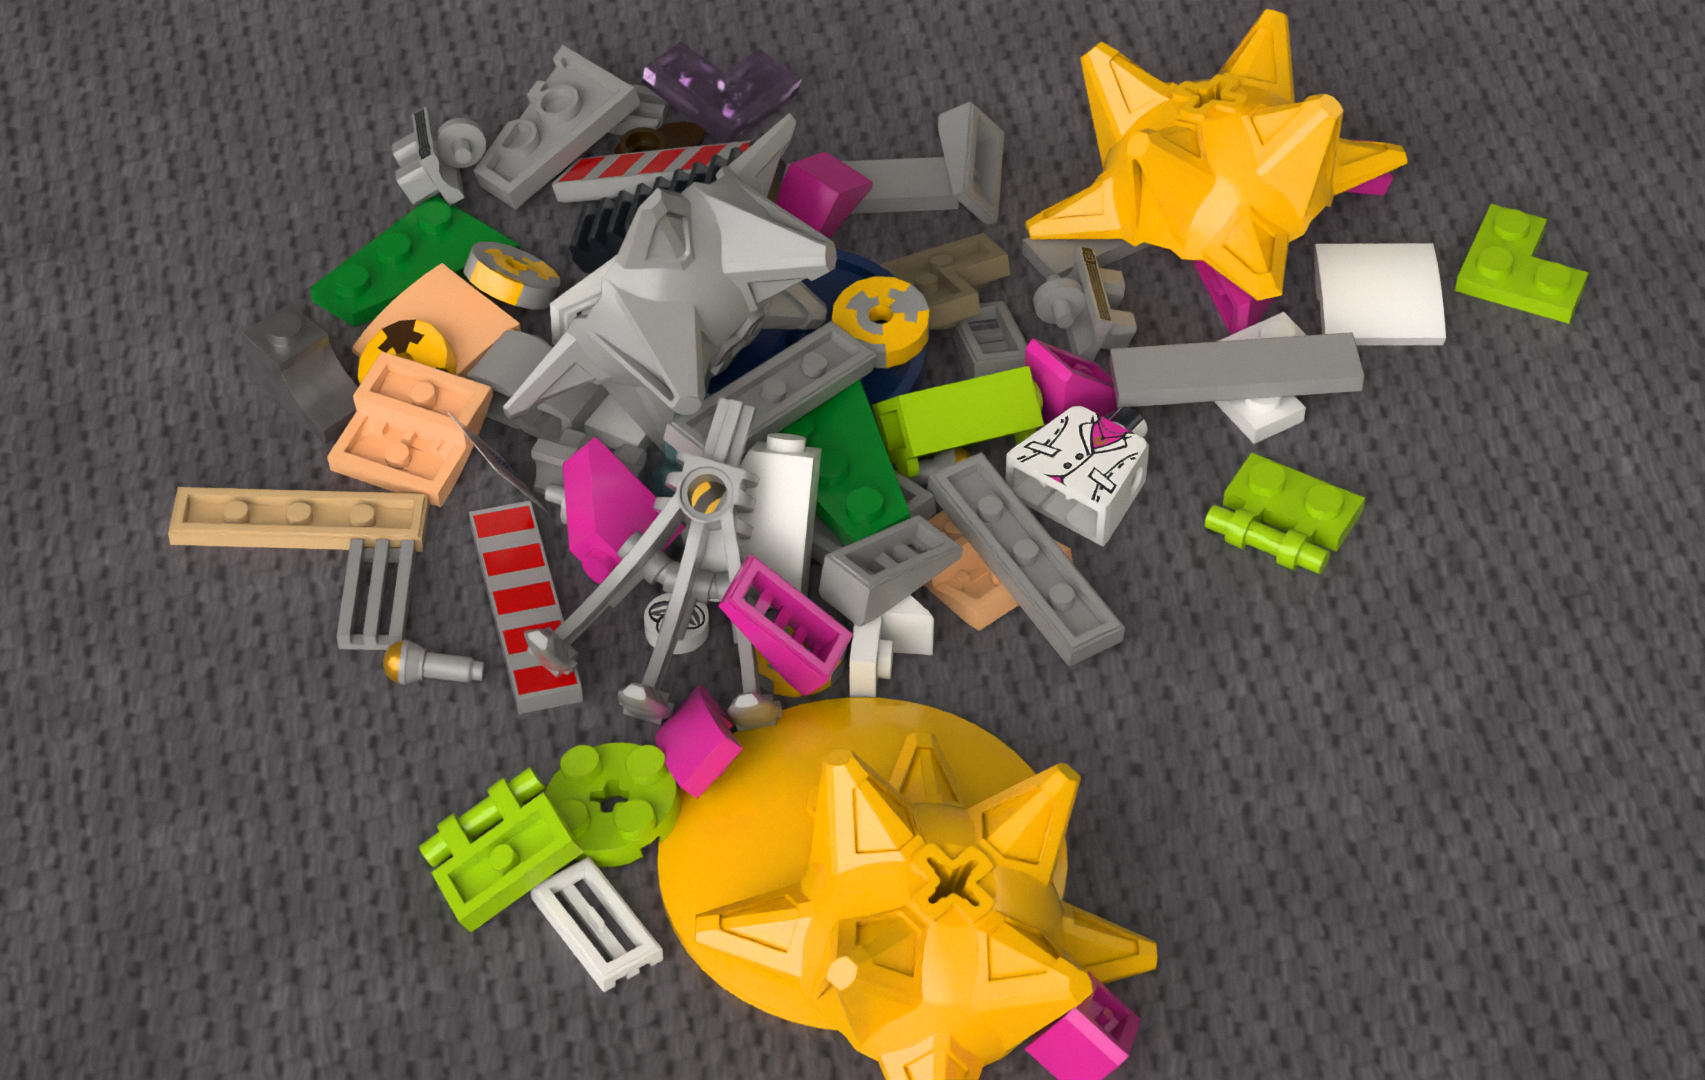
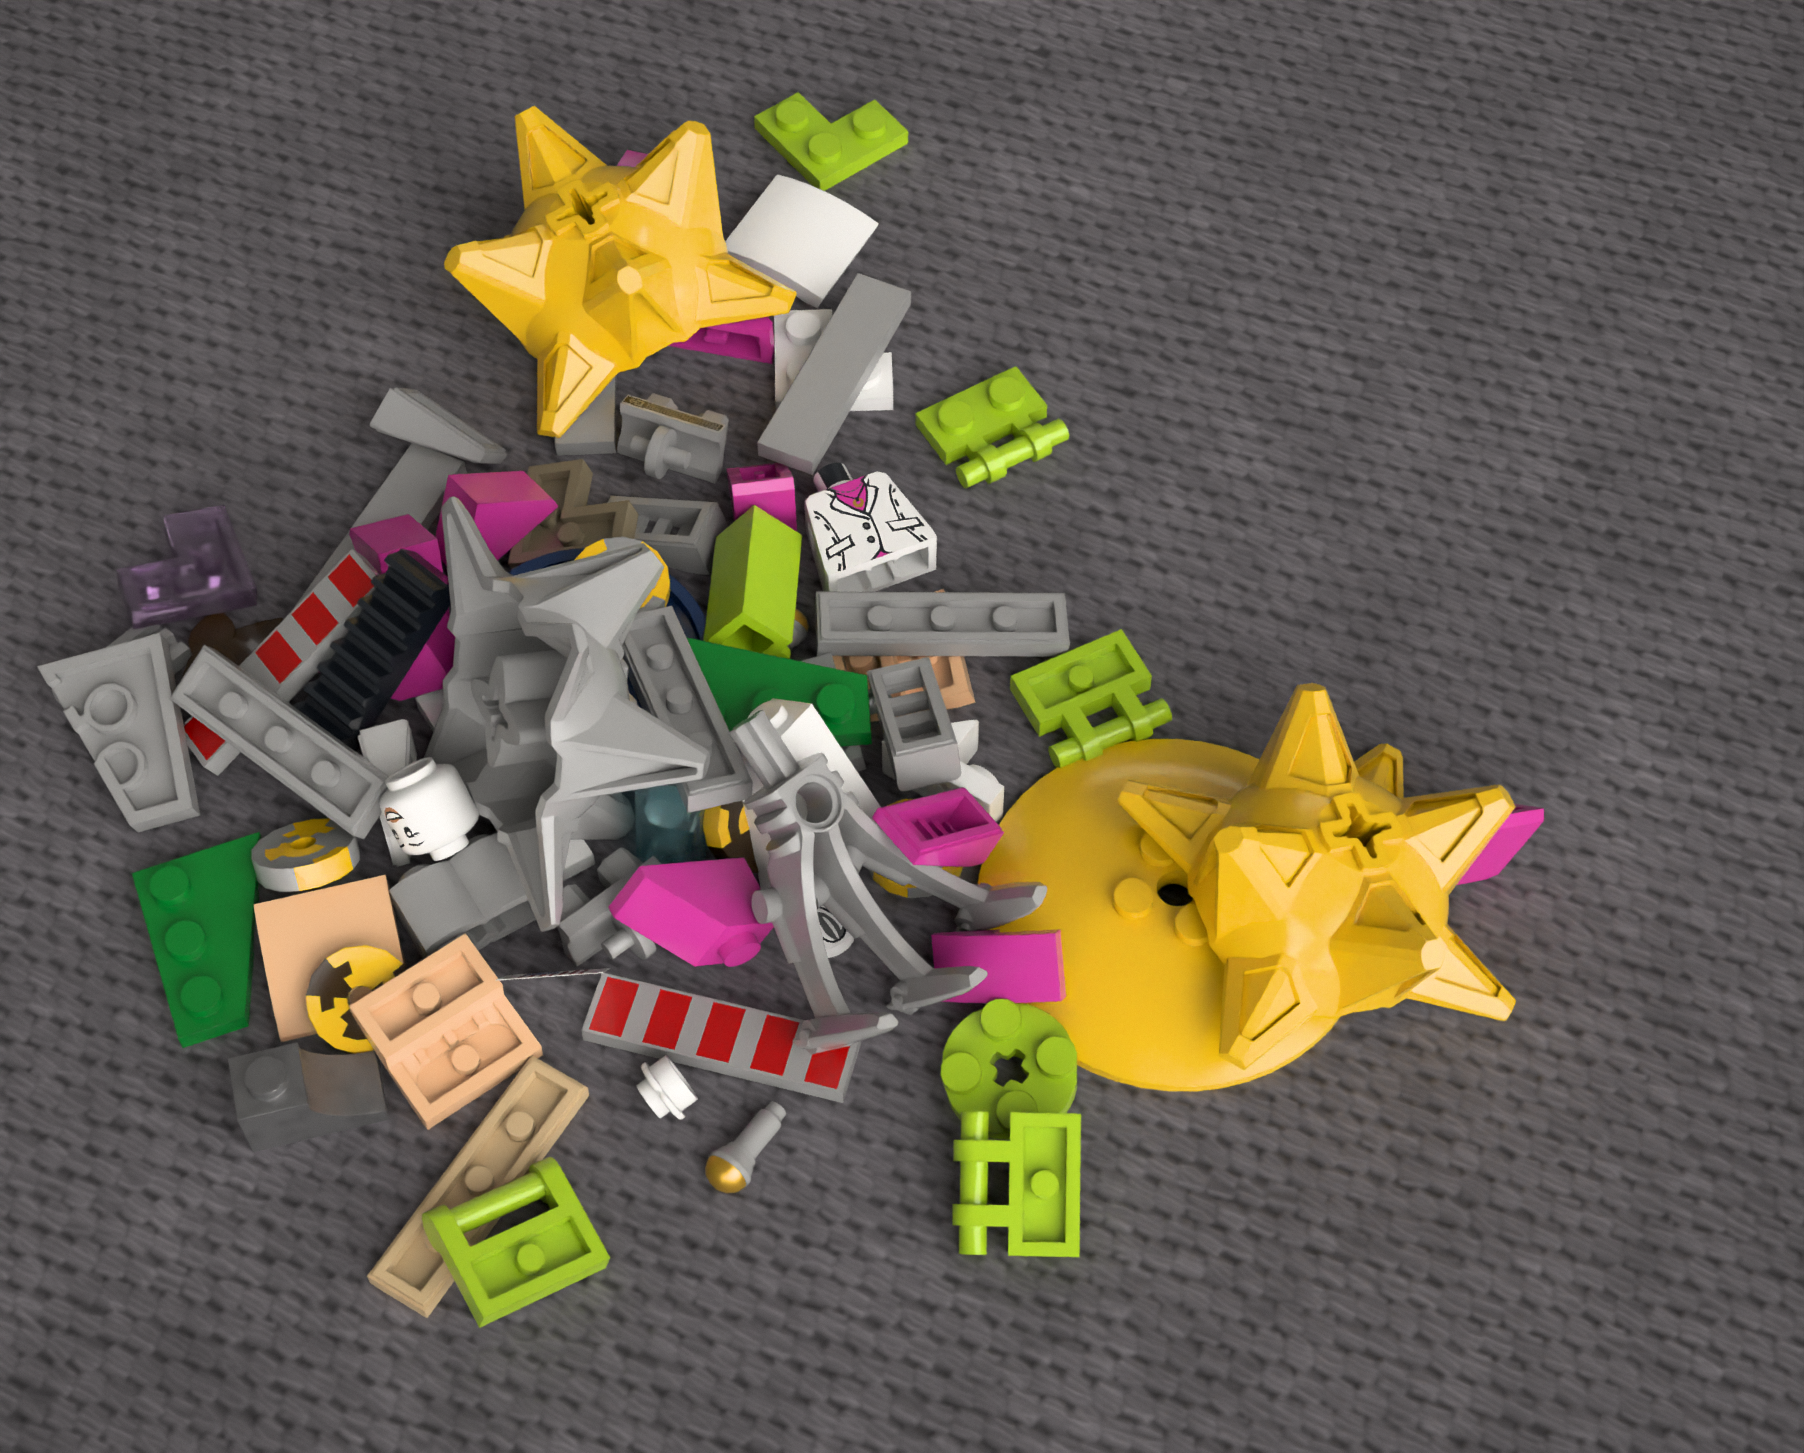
camera: 60 degrees left, 10 degrees up
(242, 566) = (526, 1259): none -> lime plate
(380, 556) = (577, 1128): light grey tile -> none
(433, 160) = (100, 820): light grey hips -> none
(448, 582) = (666, 1088): none -> white plate
(566, 295) = (429, 809): none -> white head
(588, 203) = (282, 741): none -> light grey tile
(622, 962) = (1142, 1171): white tile -> none
(909, 226) = (501, 505): none -> dark pink slope
(1043, 687) = (1083, 683): none -> lime plate

